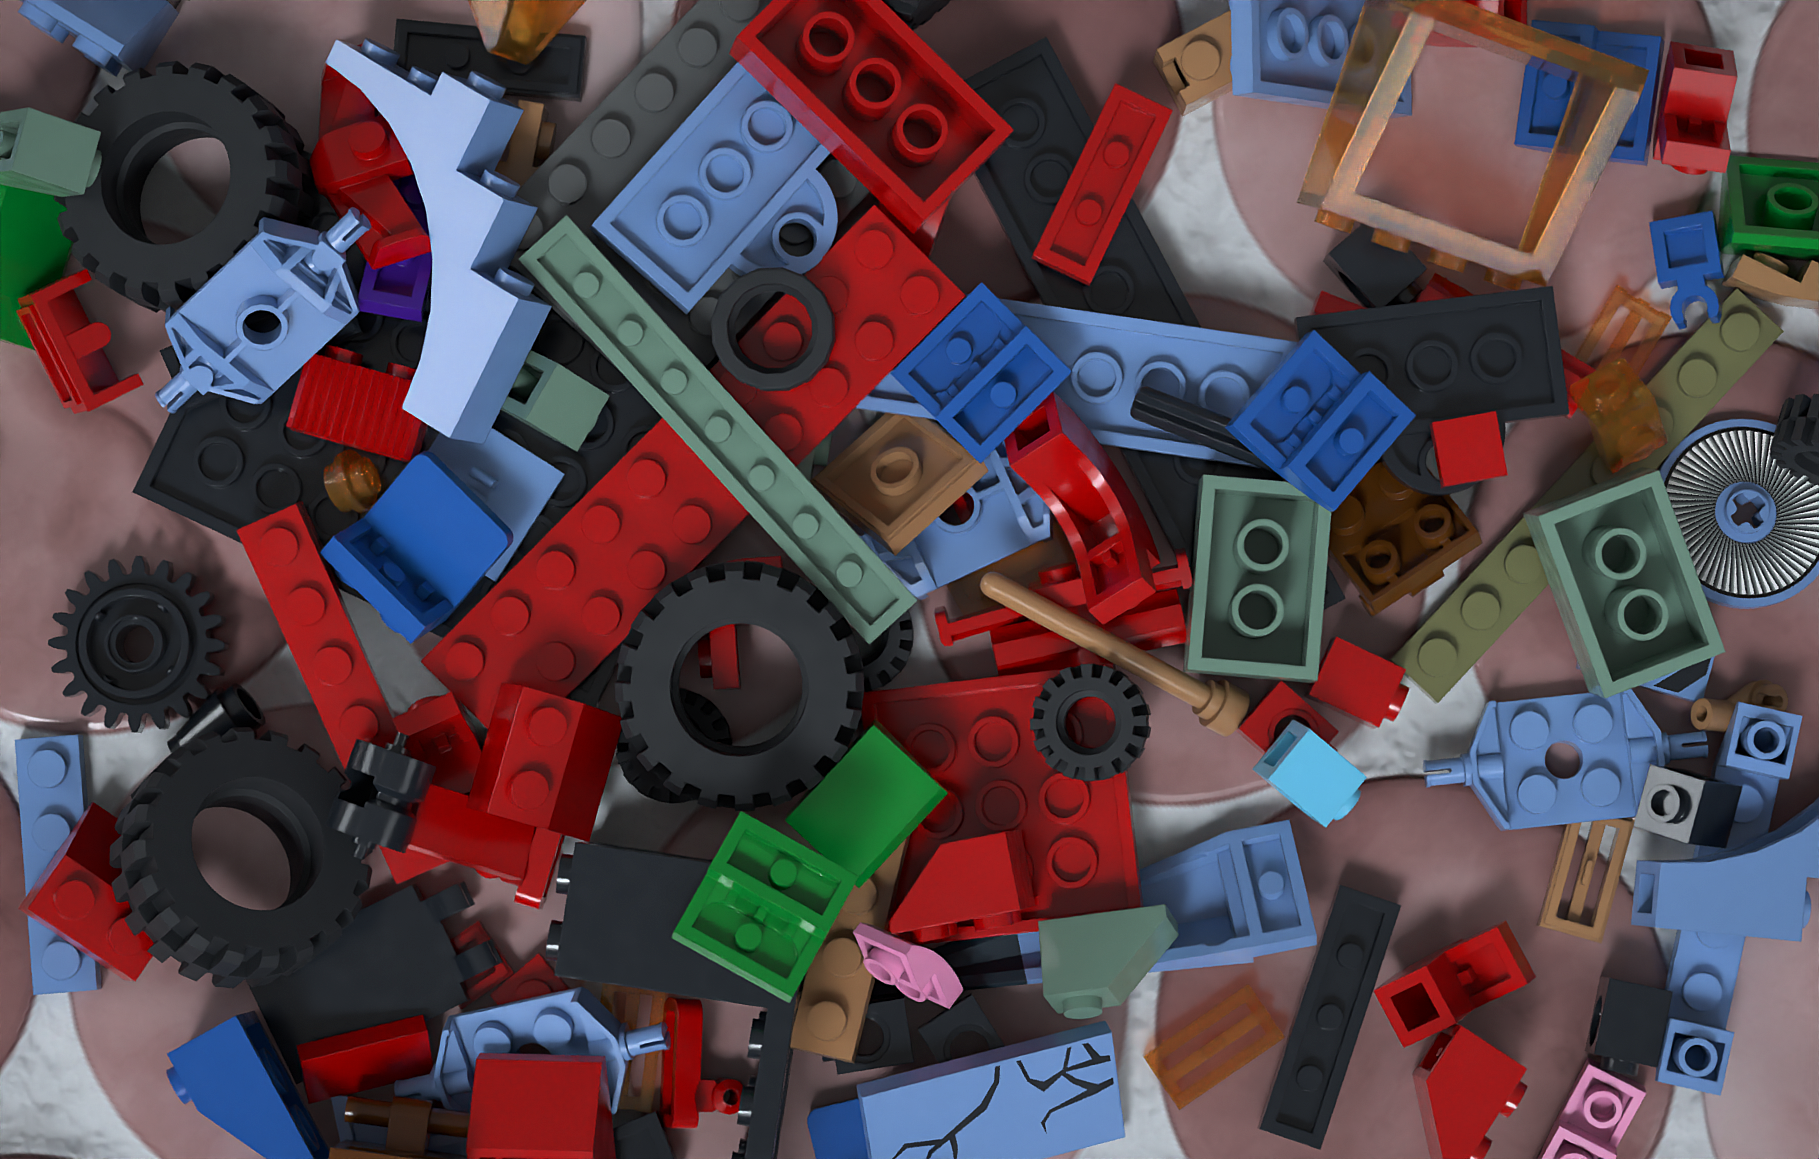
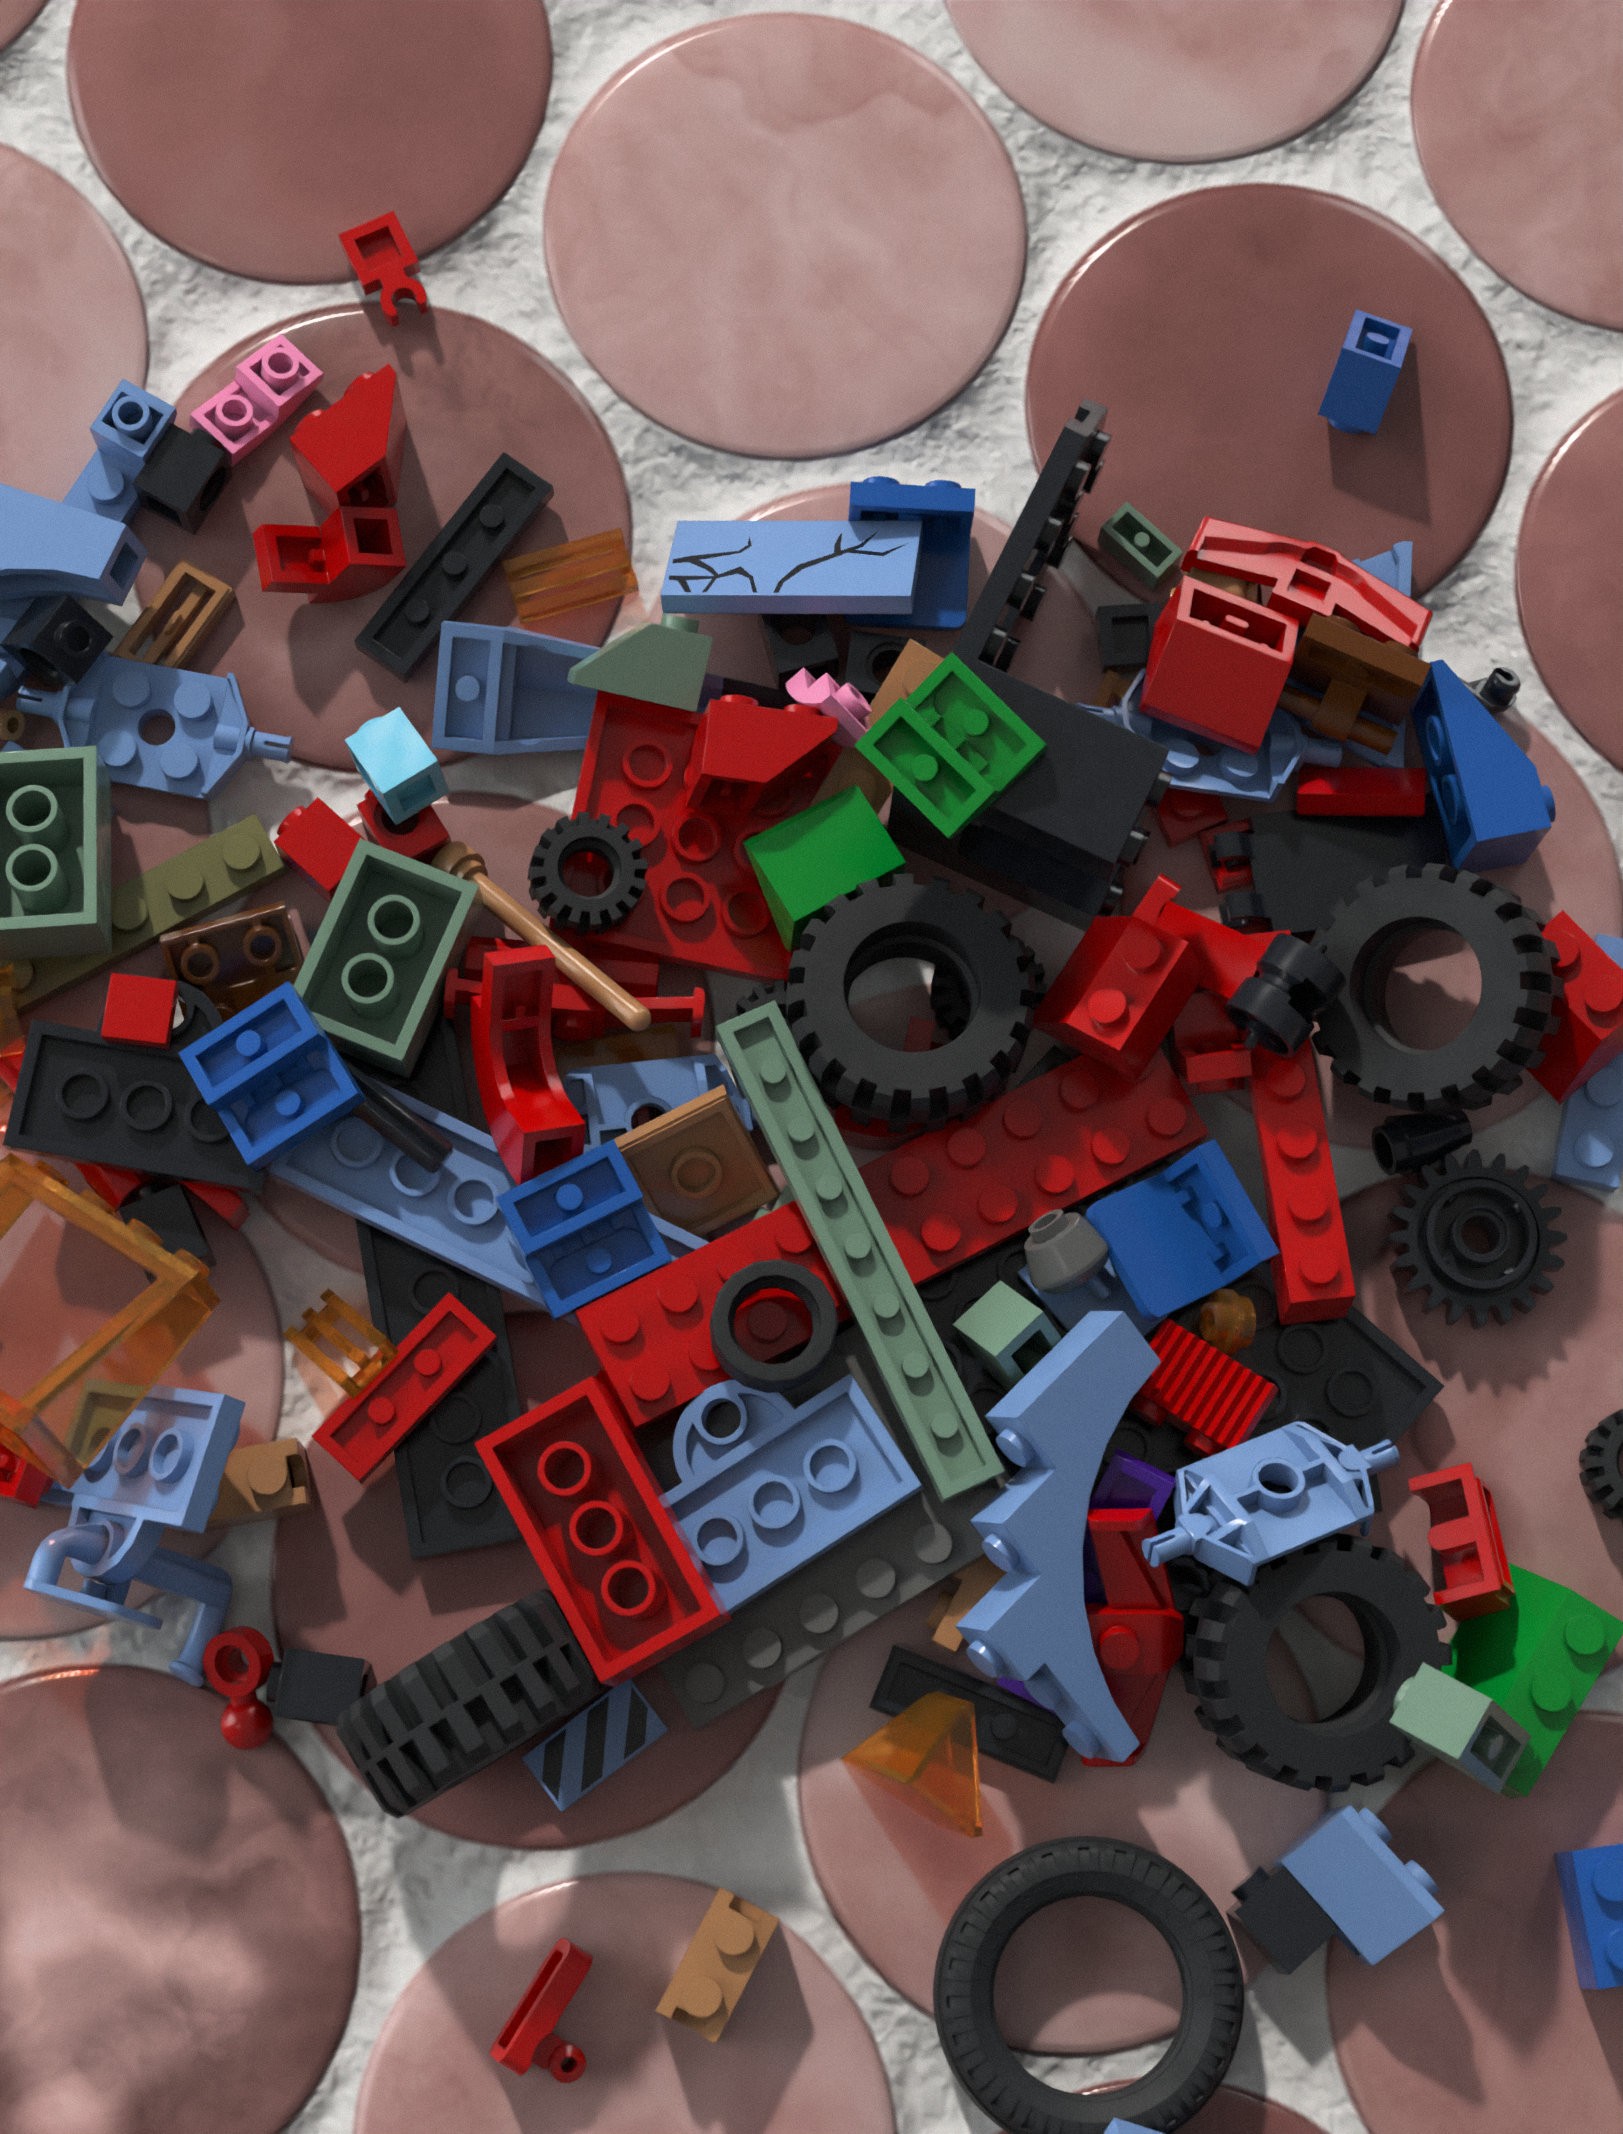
camera: 170 degrees left, 10 degrees down
(524, 493) = (1063, 1252): none -> dark grey cone
(681, 1088) = (1068, 674): red piece -> none
(1207, 228) = (321, 1325): none -> clear orange tile

